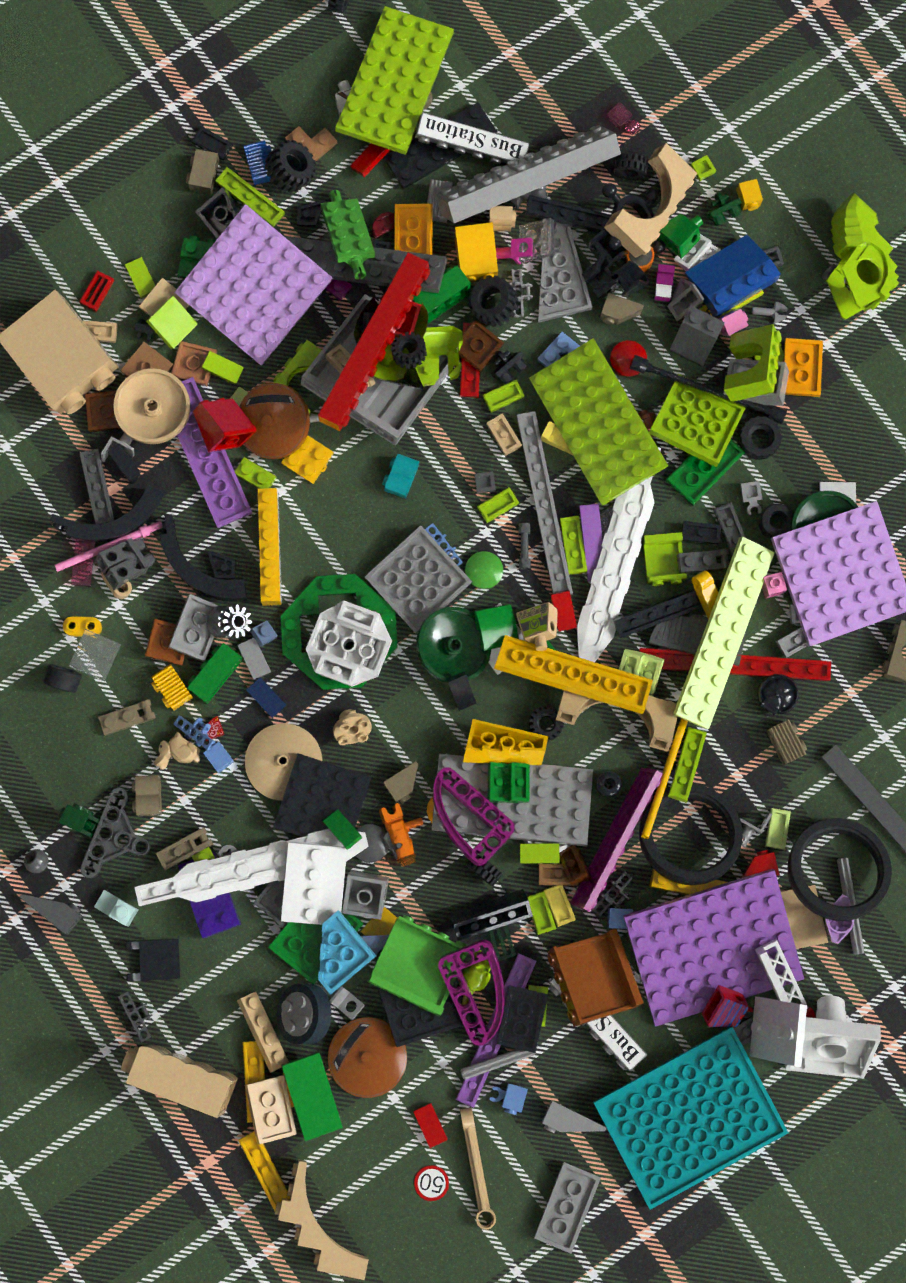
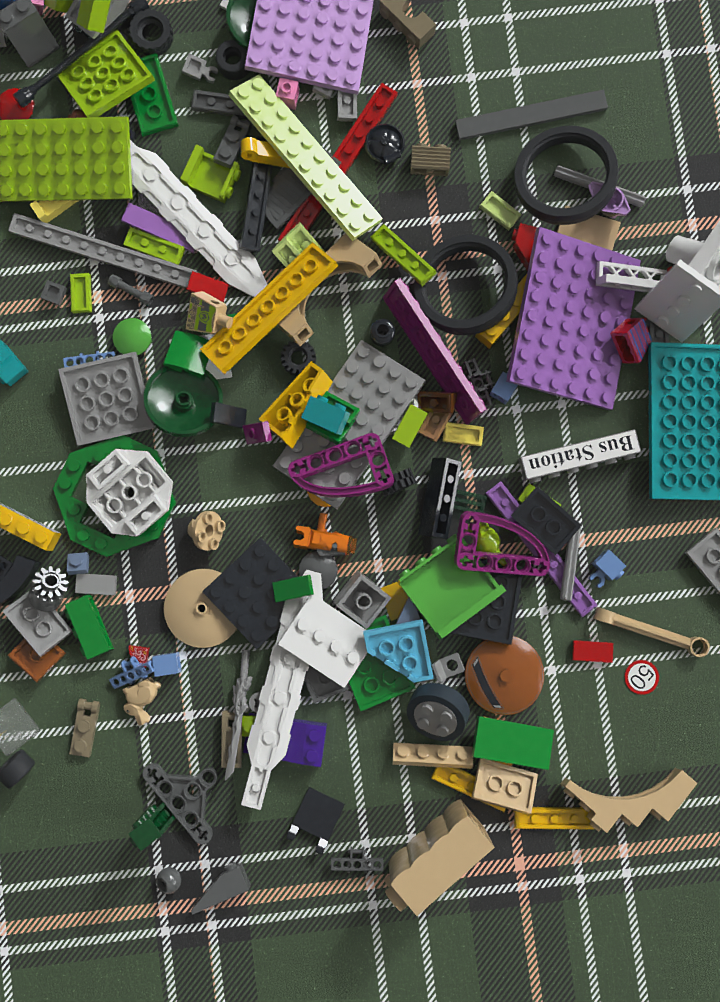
camera: 55 degrees left, 5 degrees up
(116, 908) = (251, 829): light aqua arch -> none
(148, 795) = (165, 746): dark tan brick -> none
(171, 687) = (80, 673): yellow brick -> none
(221, 837) = (240, 706): none -> light grey sword
(266, 697) = (137, 592): dark blue tile -> none
(402, 783) = (281, 513): dark tan slope -> none
(460, 724) = (257, 432): none -> magenta plate
(504, 434) = (20, 252): tan plate -> none
(506, 775) = (326, 415): none -> teal brick
(541, 913) = (466, 454): lime tile -> none
(565, 1120) = (652, 530): light grey slope -> none
(594, 978) = (545, 437): dark orange panel -> none
(664, 779) = (412, 288): yellow piece -> none
(701, 532) = (206, 129): black plate -> none
(748, 829) = (488, 232): light grey bracket -> none

